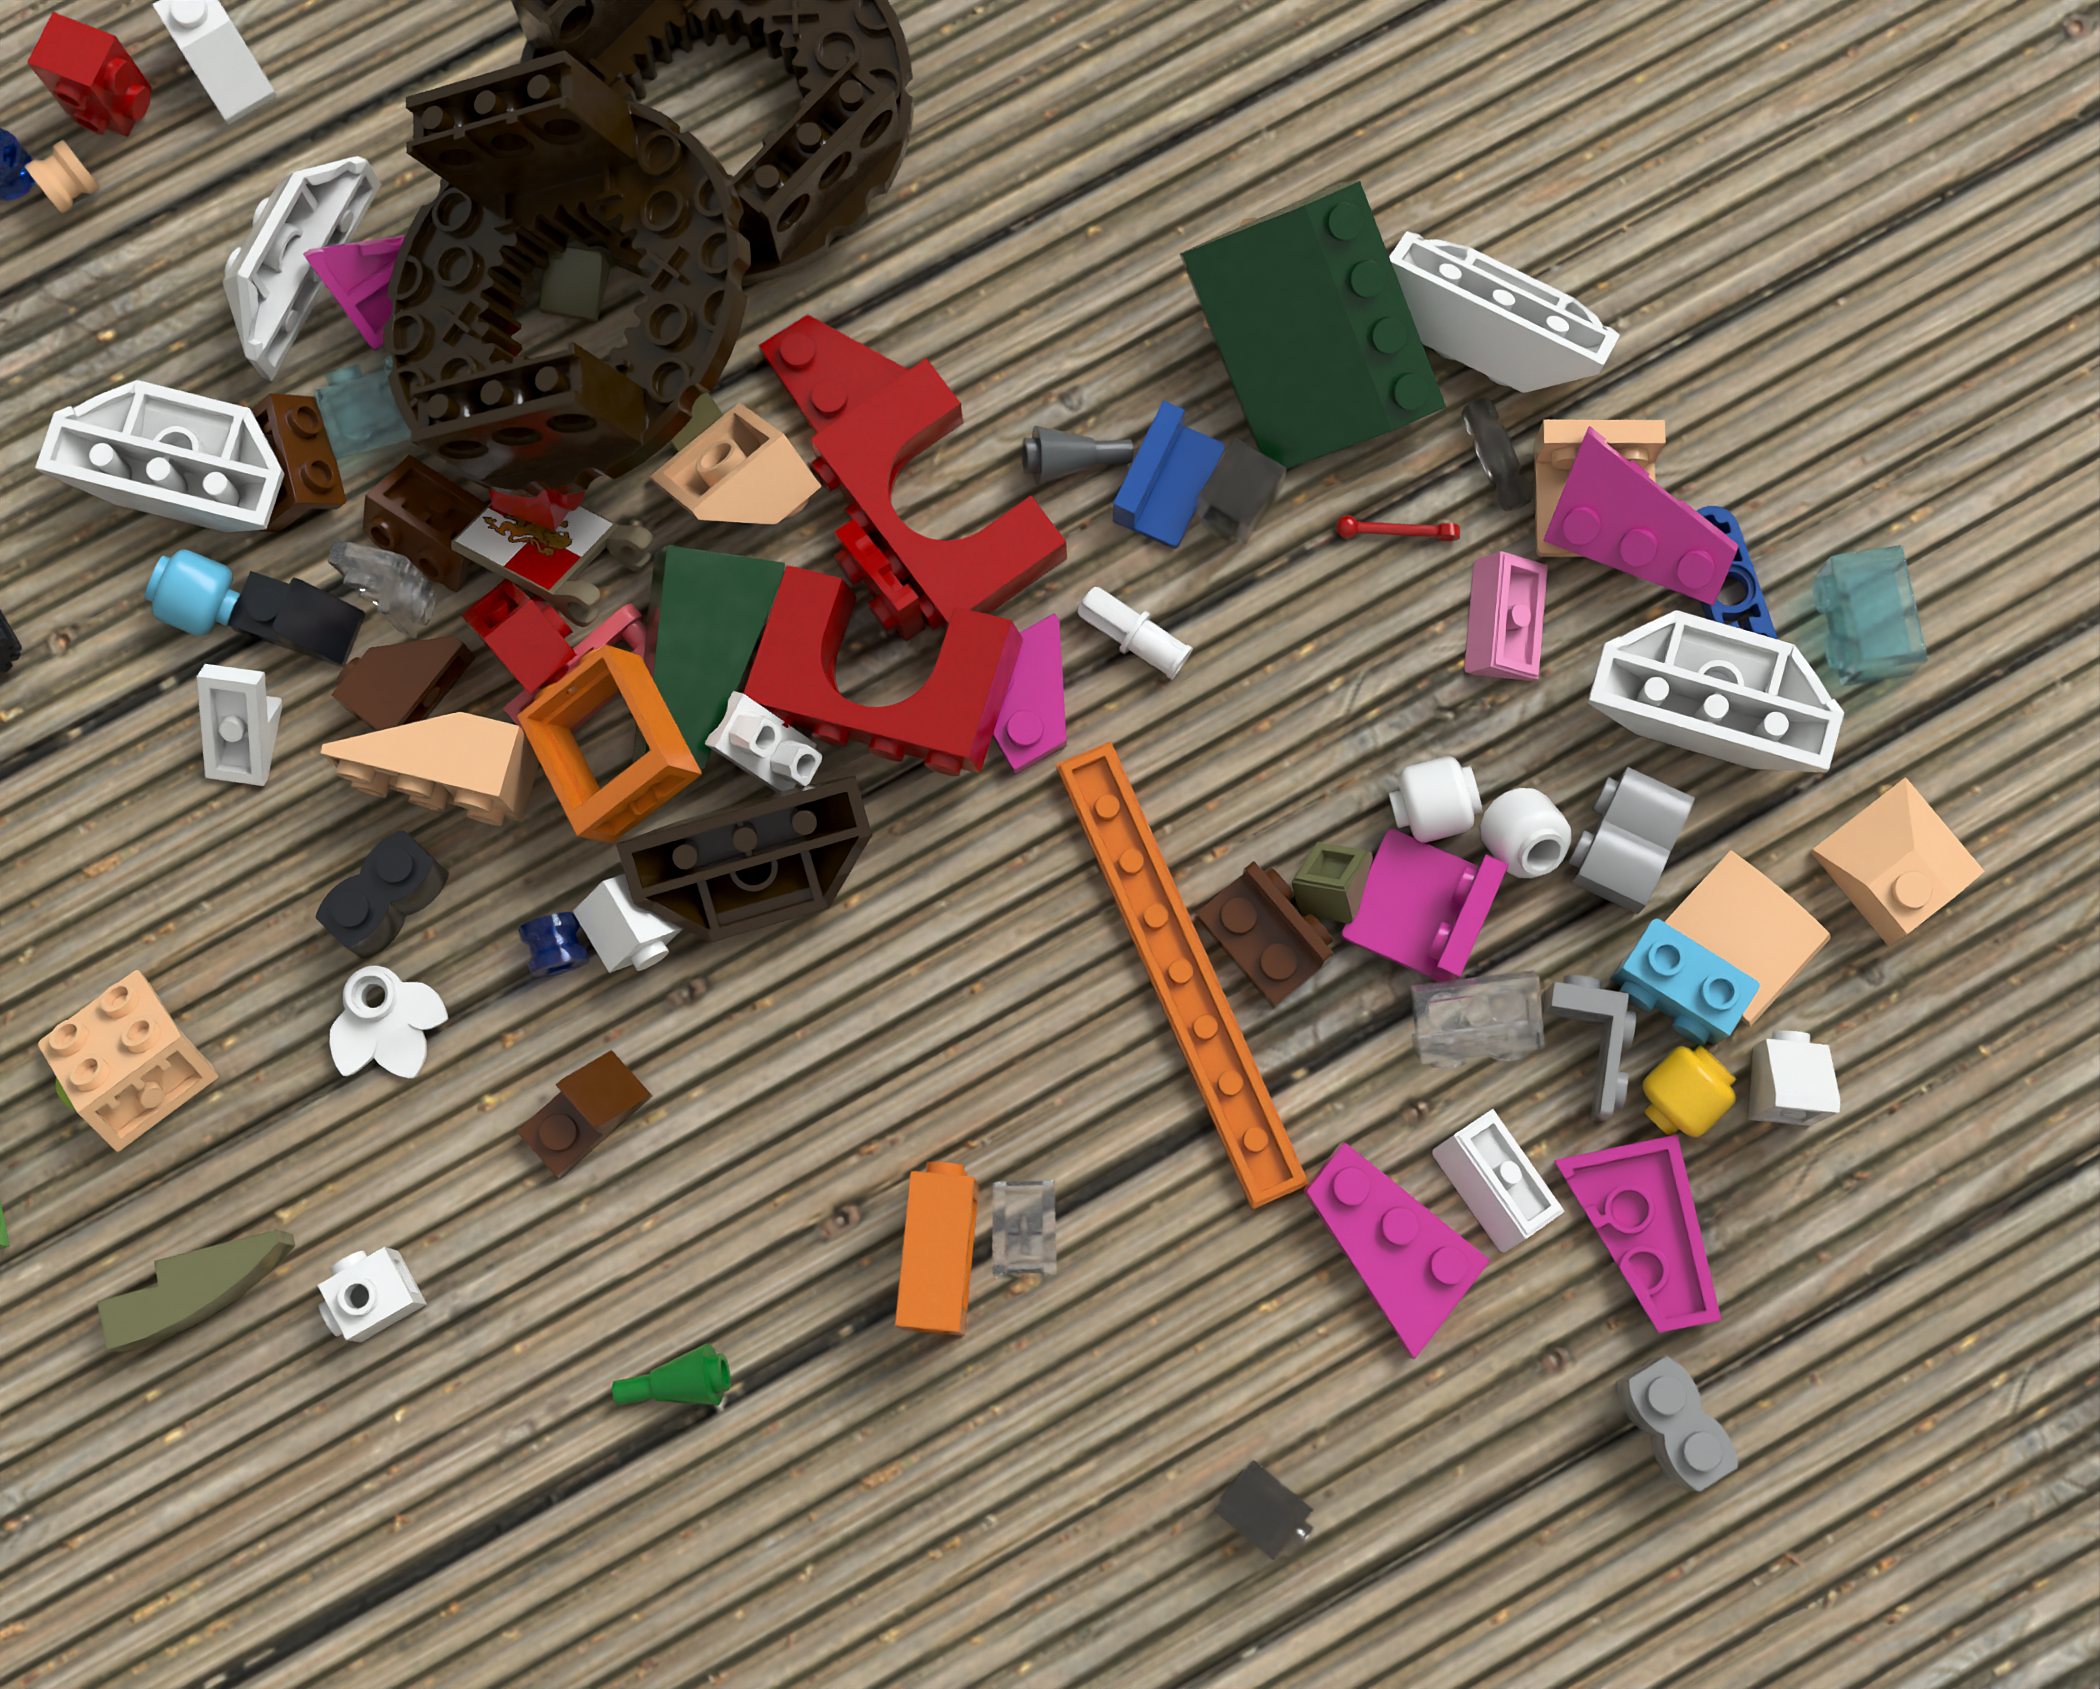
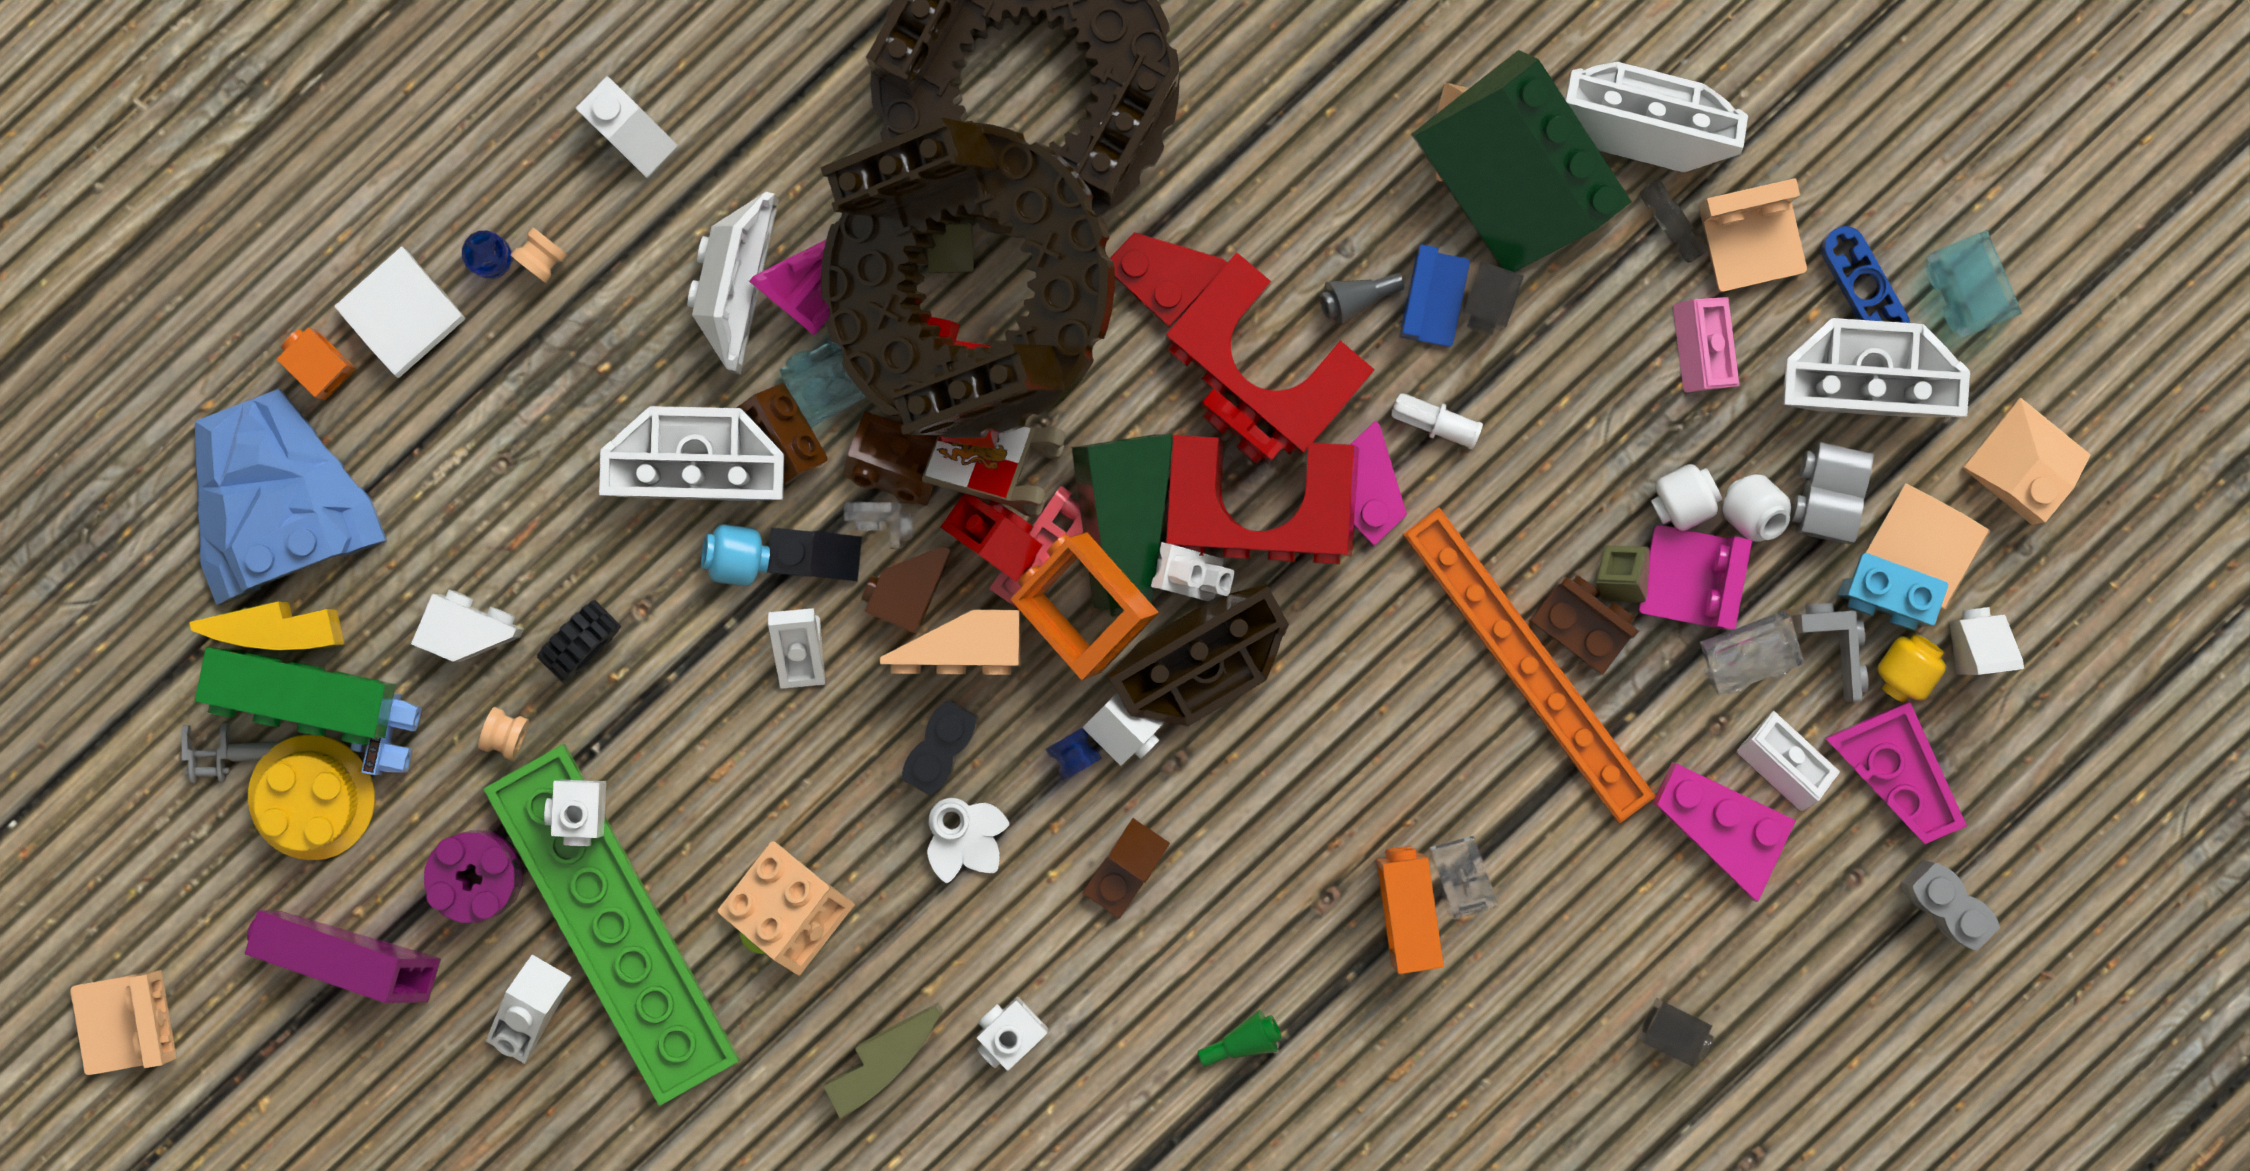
camera: 15 degrees left, 10 degrees up
(90, 76) = (544, 175): red brick -> none
(738, 472) = (1124, 375): light nougat slope -> none
(1348, 527) = (1575, 302): red hinge -> none
(1636, 526) = (1784, 260): dark pink wing -> none

